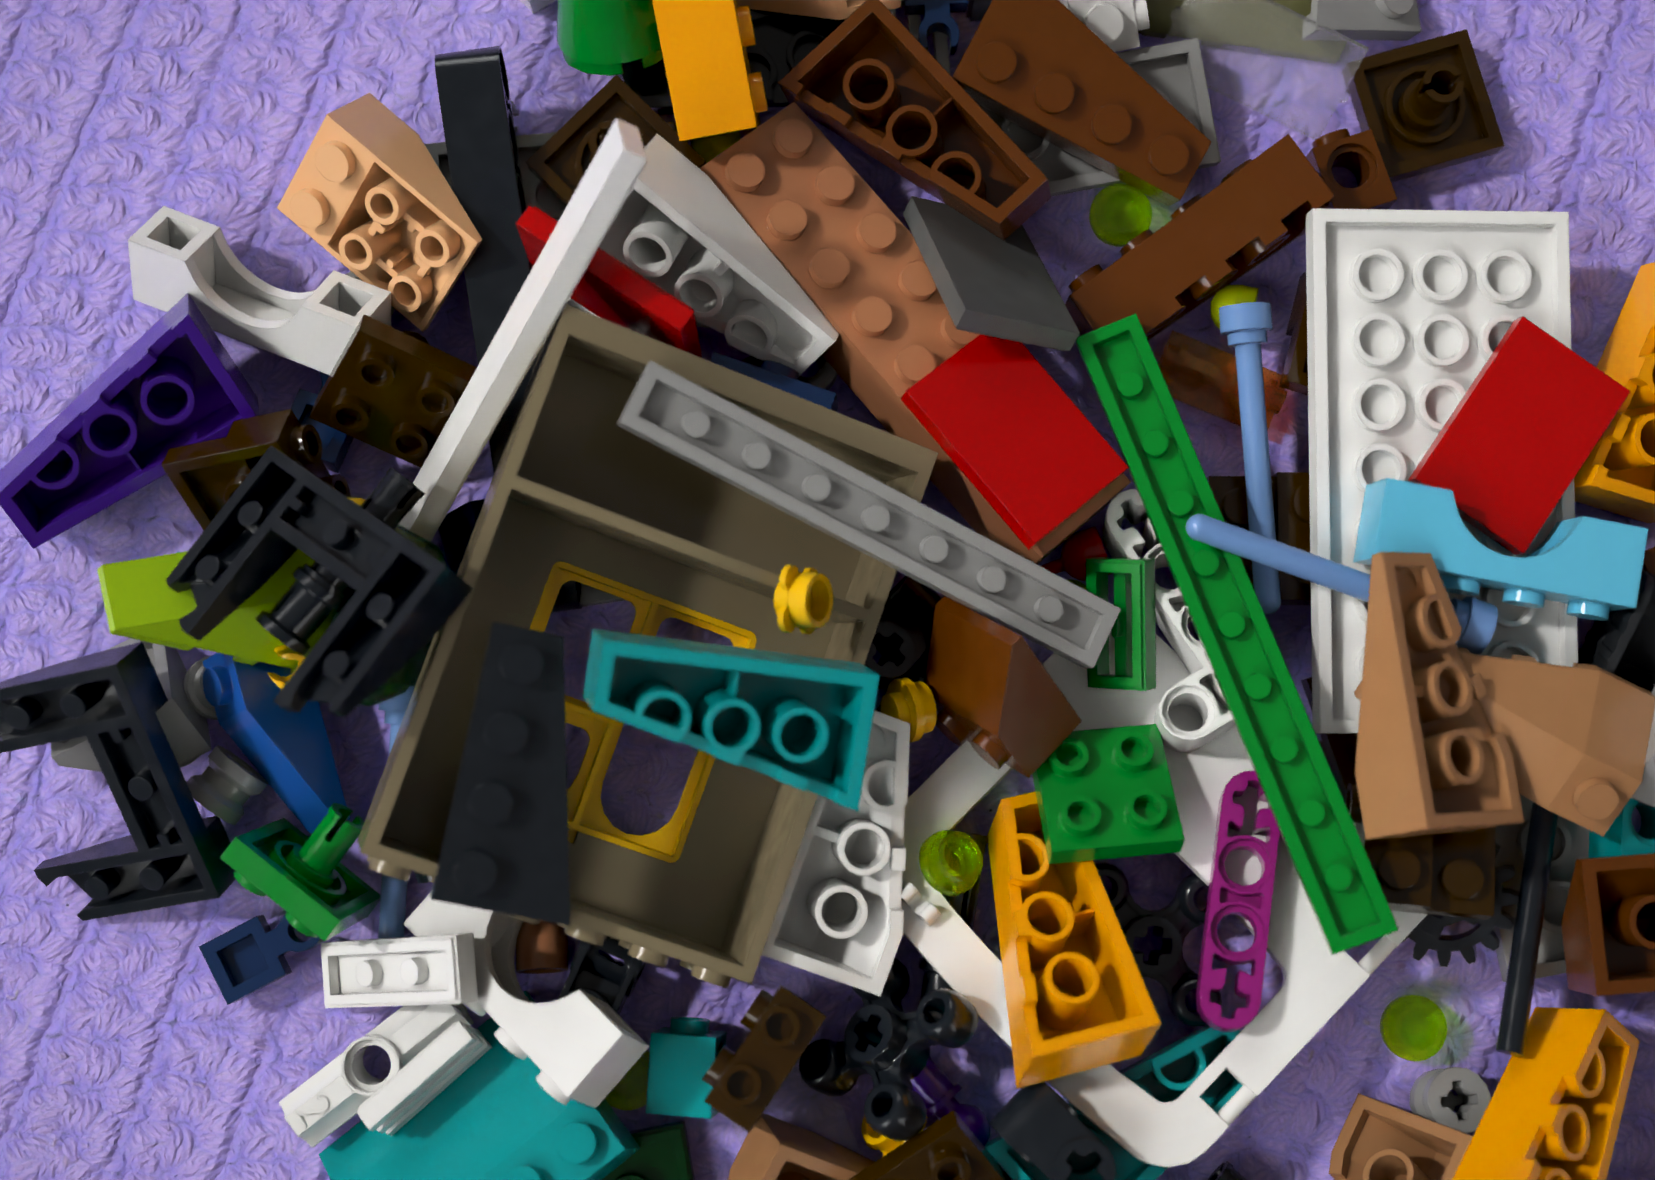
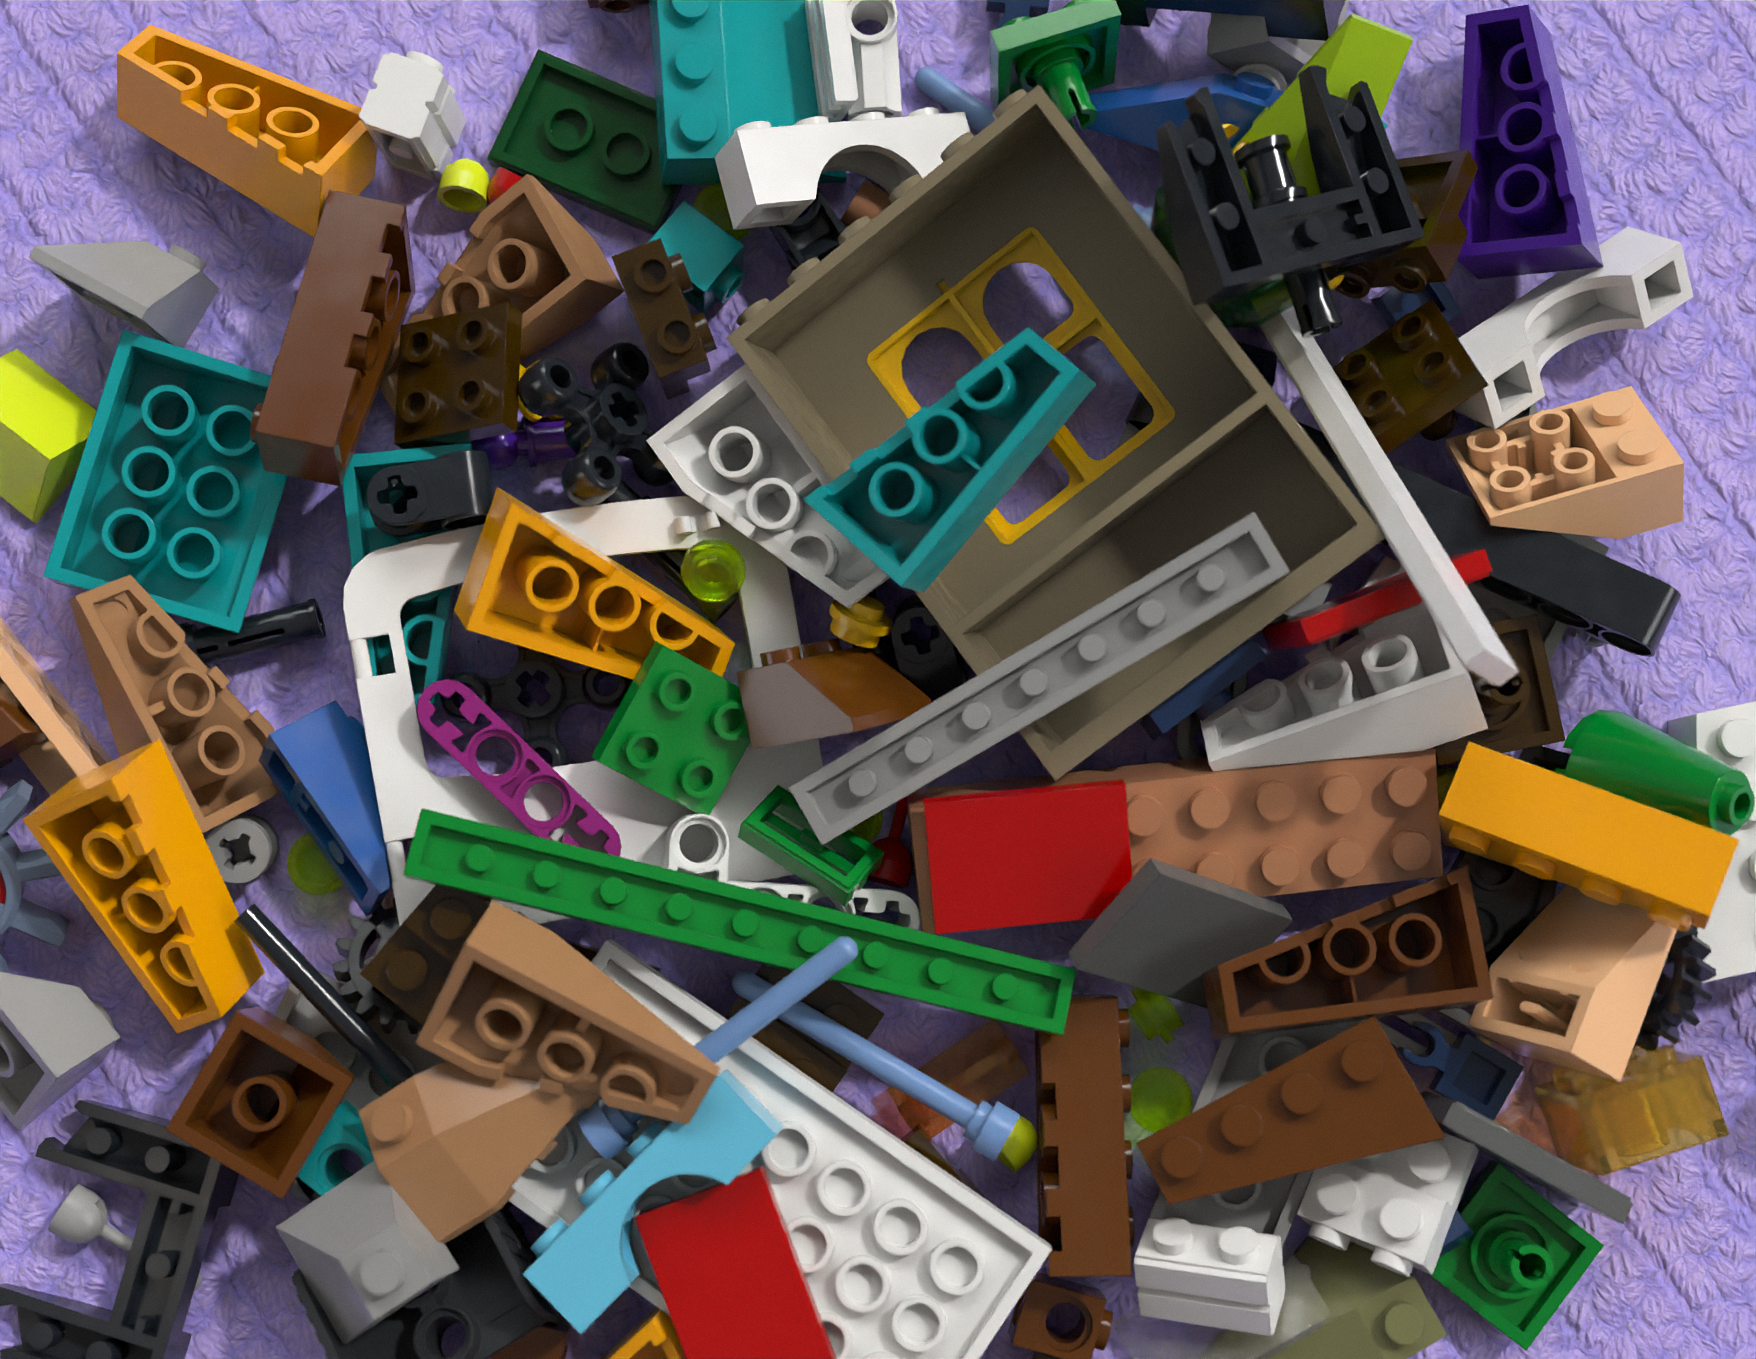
camera: 120 degrees right, 0 degrees up
(226, 785) = (1170, 48): light grey wheel -> none
(399, 971) = (927, 83): white tile -> none
(509, 803) = (1001, 228): black wing -> none
(802, 600) = (1006, 575): yellow plate -> none
(1060, 257) = (1155, 1015): none -> clear neon green plate
(1236, 81) = (1210, 1275): none -> white brick
(1350, 1061) = (329, 784): none -> blue slope

